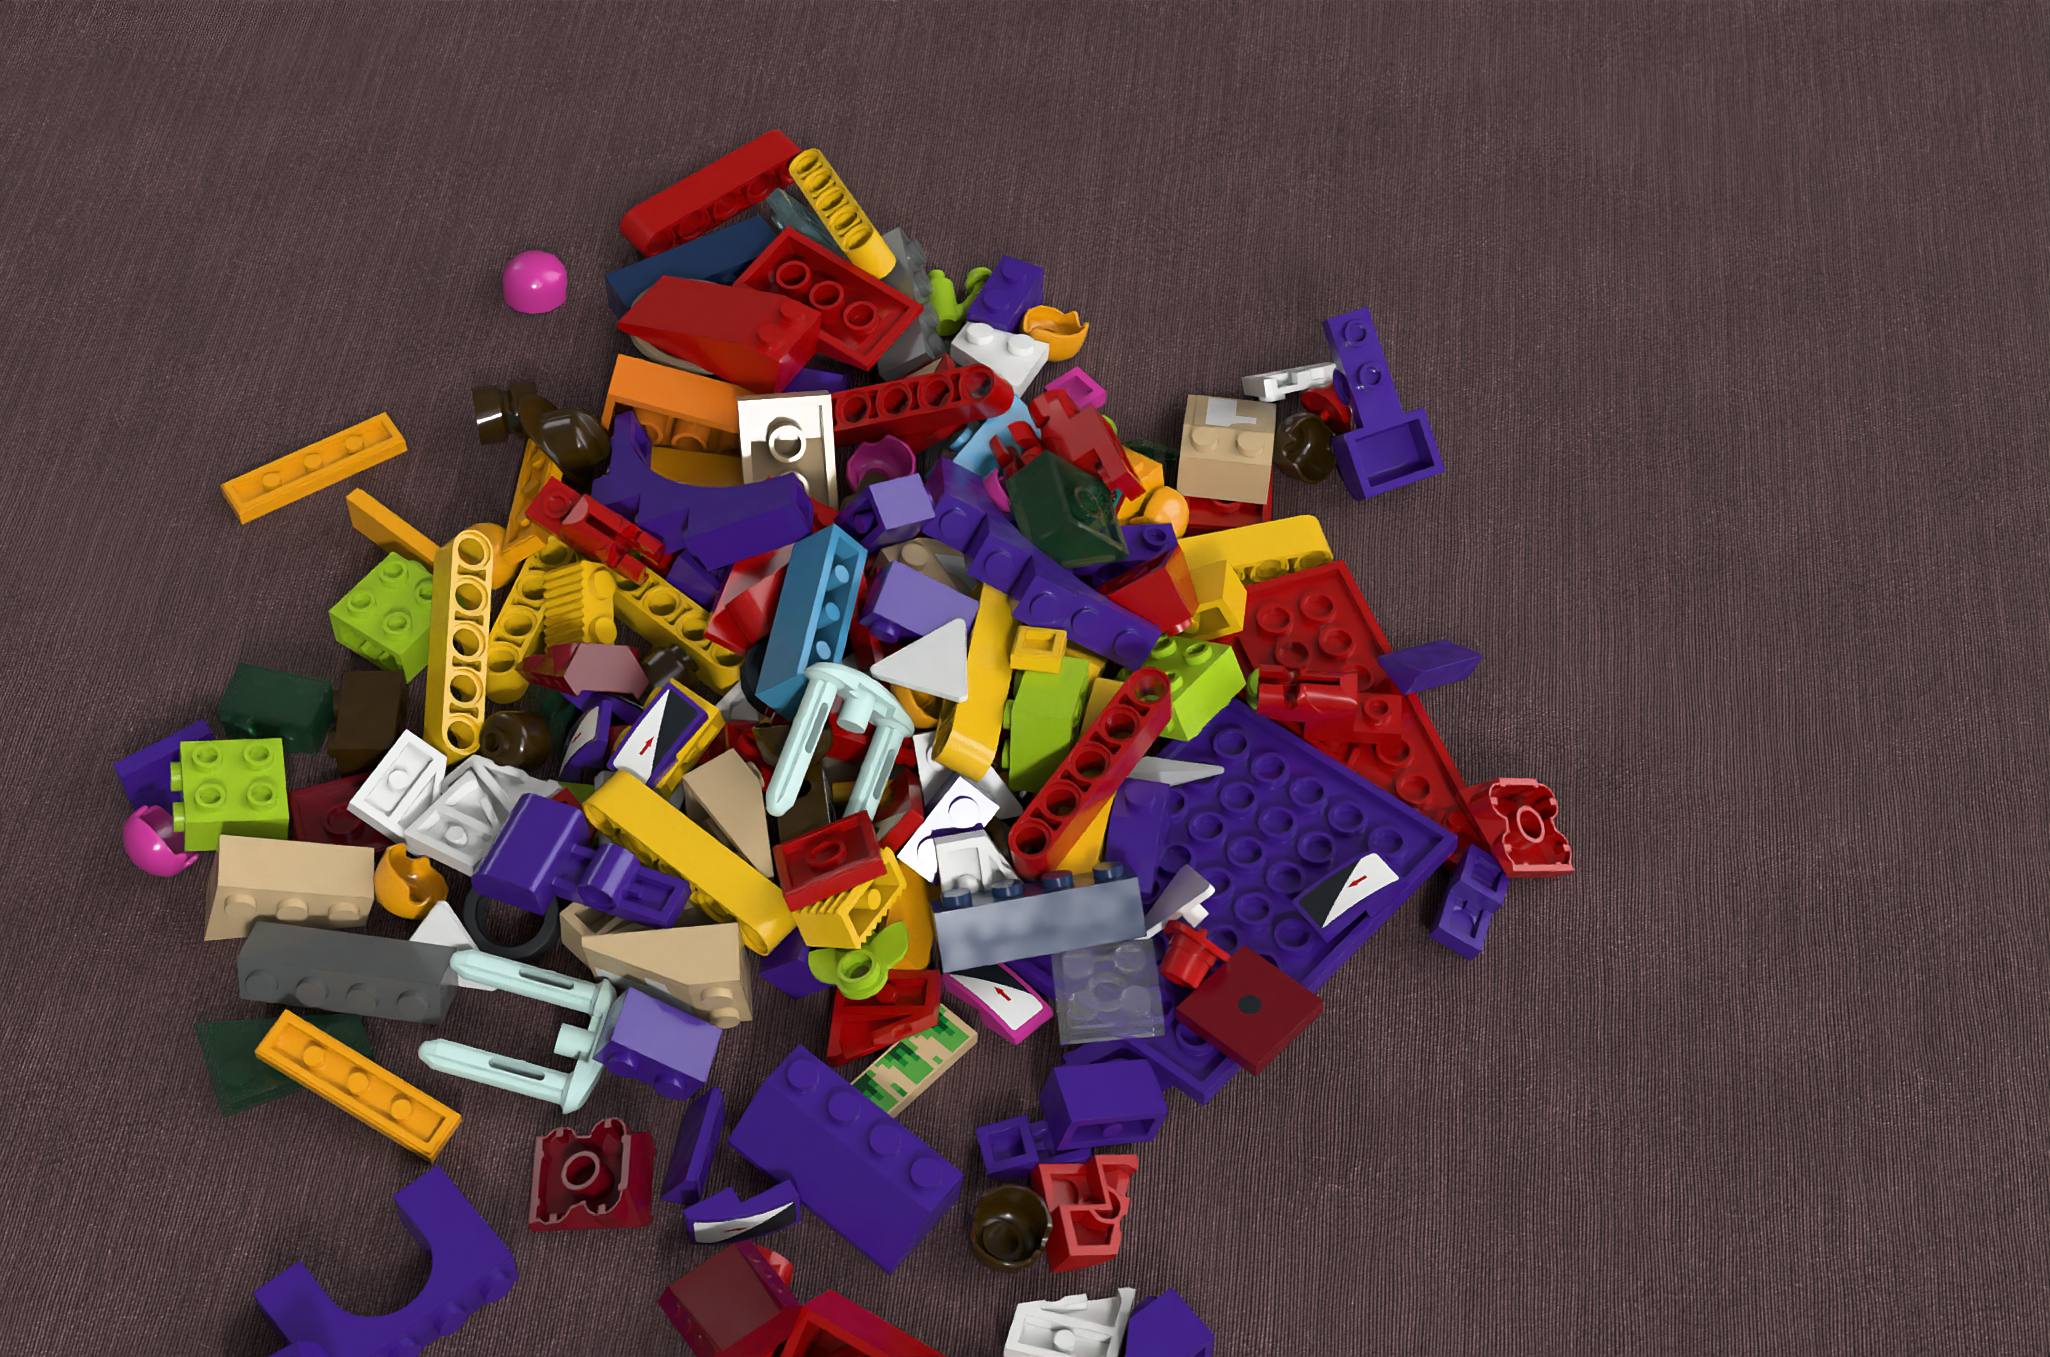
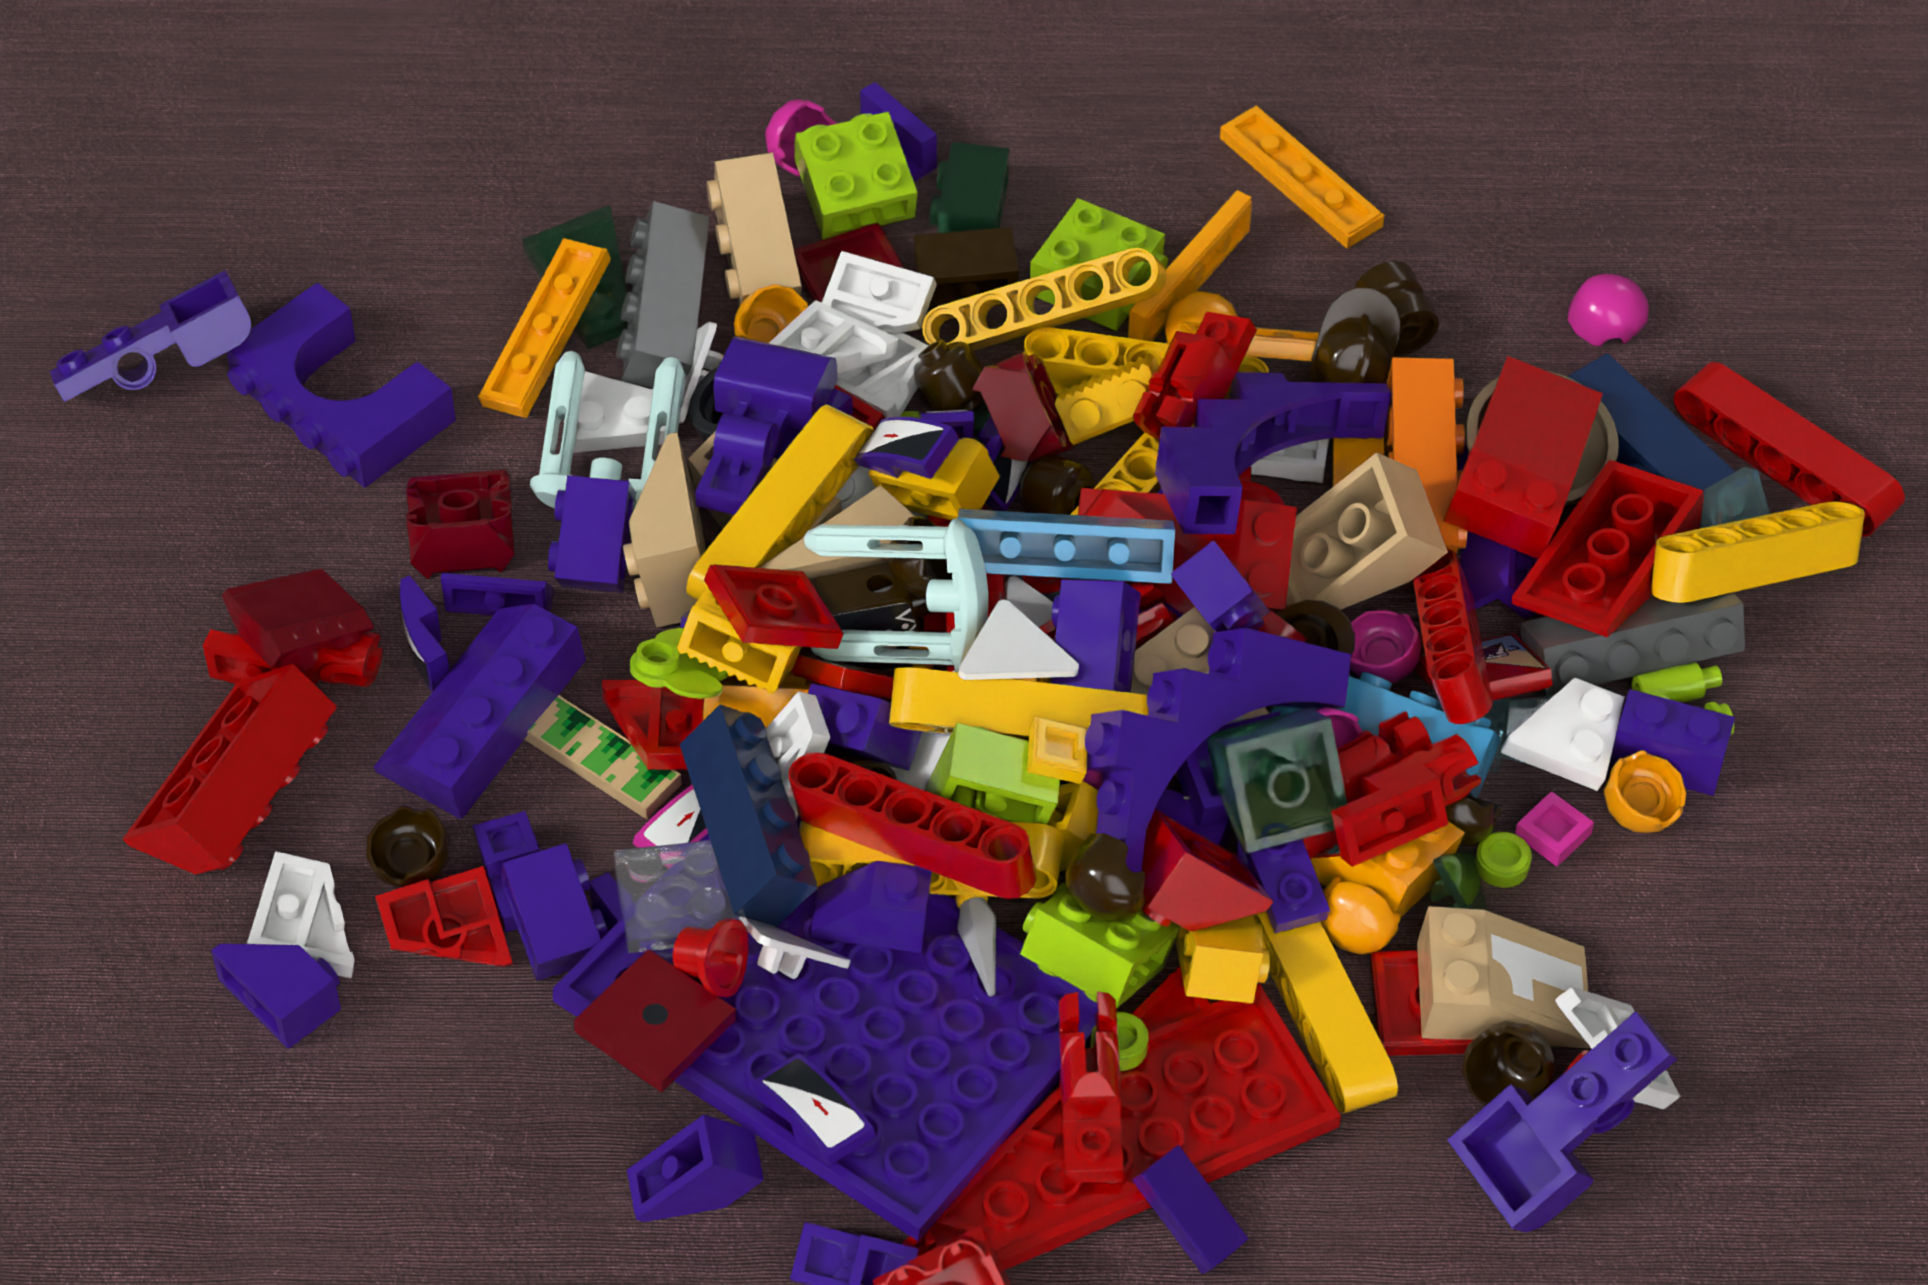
camera: 85 degrees right, 0 degrees up
(479, 1020) = (612, 415): none -> white wing
(1165, 637) = (1103, 882): none -> dark brown hair
(1379, 1013) = (695, 1171): none -> dark purple slope

